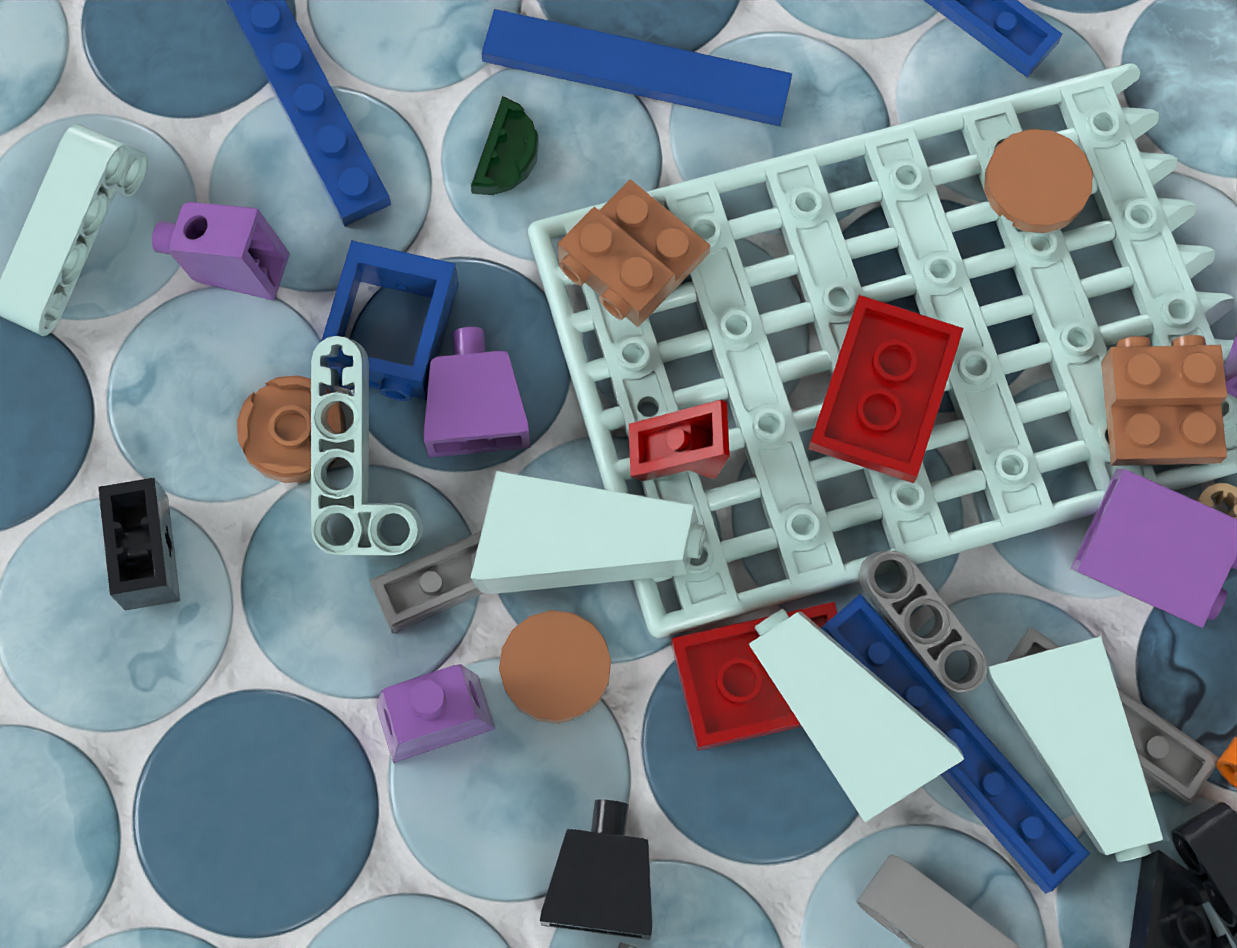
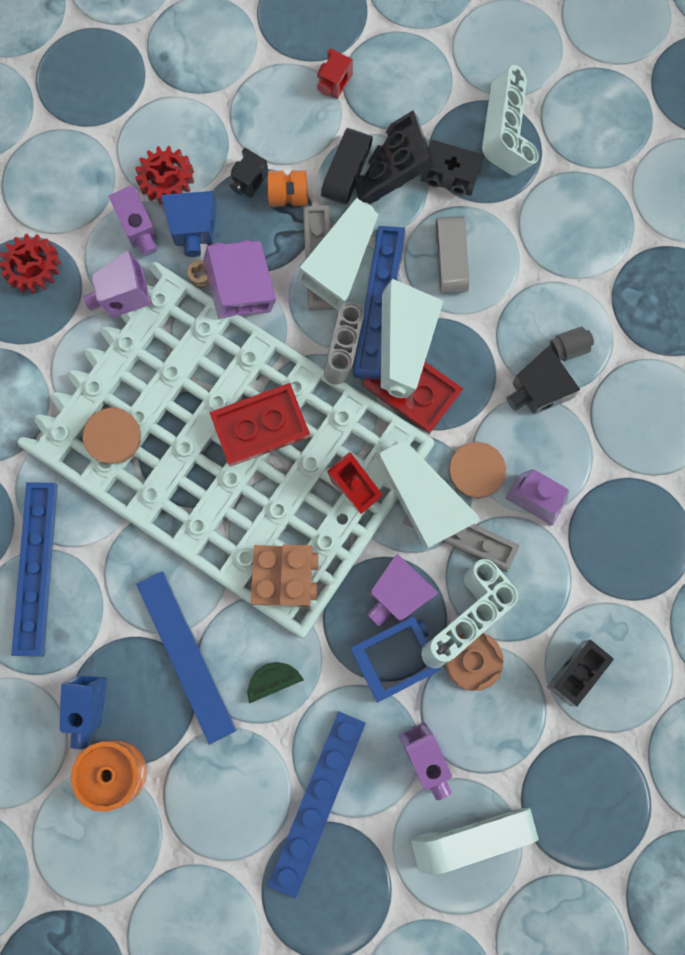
camera: 125 degrees left, 5 degrees up
(1164, 402) = (176, 316): nougat plate -> none

